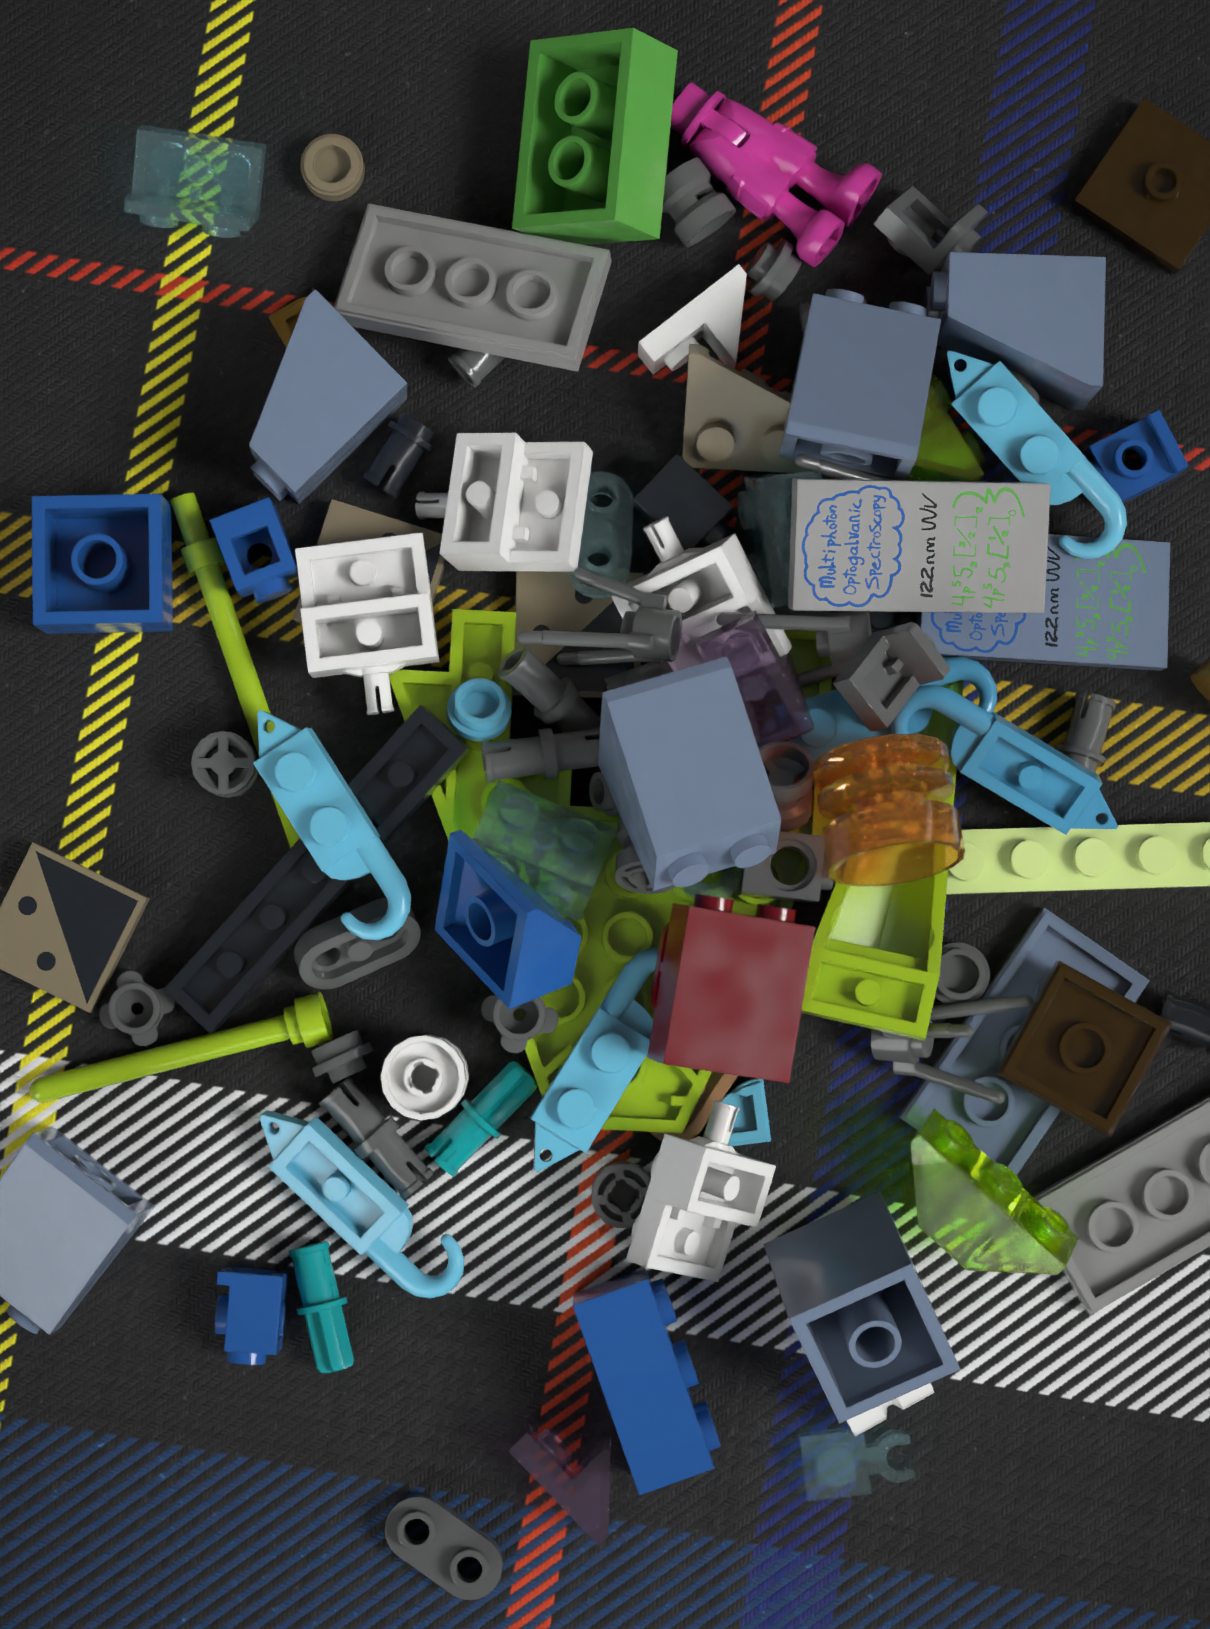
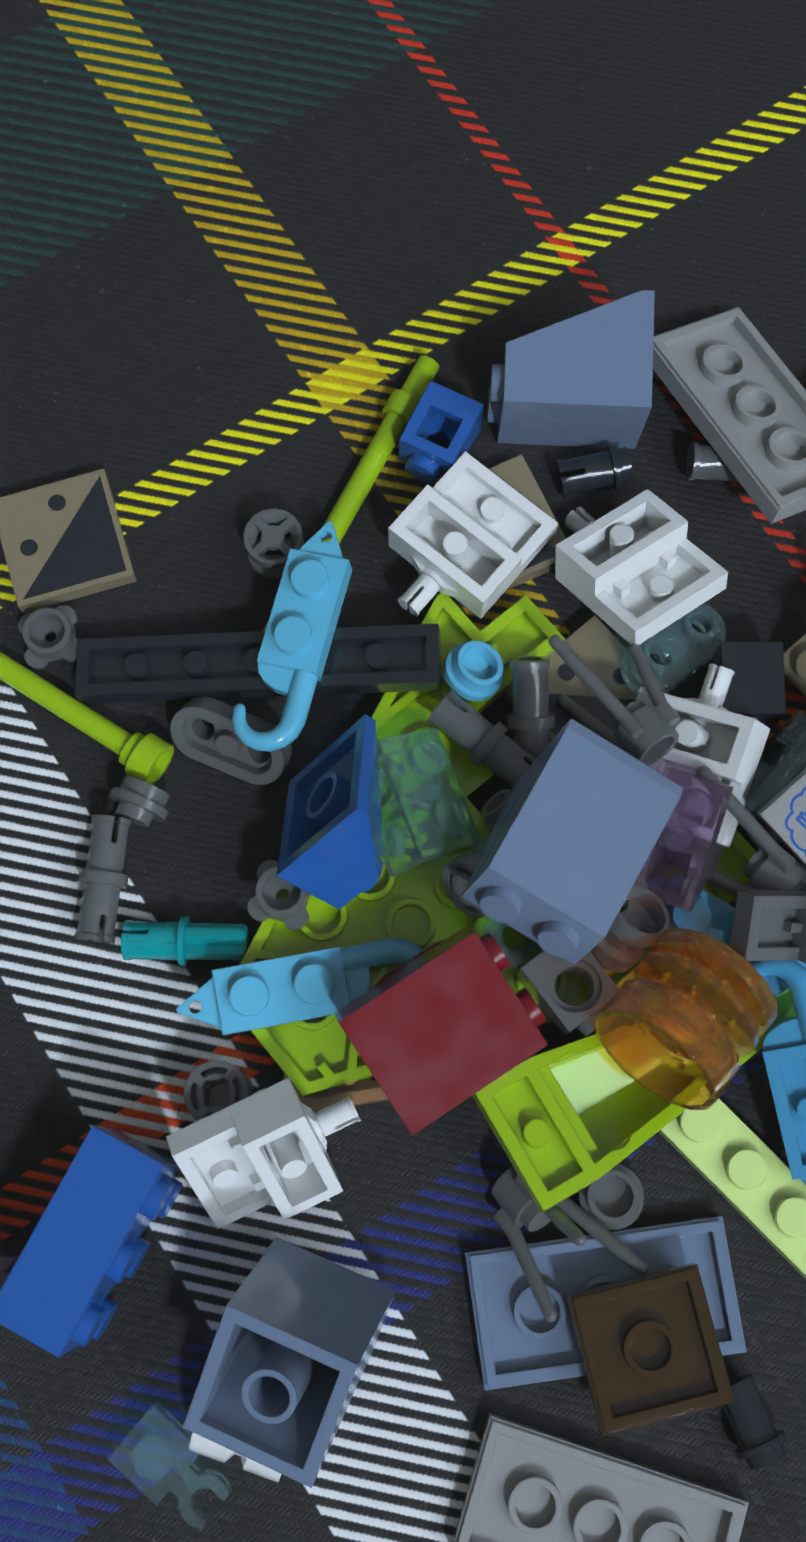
camera: 50 degrees right, 10 degrees down
(102, 563) = (334, 343): blue brick -> none
(196, 181) = (647, 188): clear light blue bracket -> none
(332, 167) = (738, 268): dark tan tile -> none
(353, 1201) = (41, 905): medium azure plate -> none
(424, 1077) = (176, 869): white wheel -> none
(752, 1119) = (363, 1138): medium azure tile -> none
(981, 1207) = (454, 1384): clear neon green slope -> none

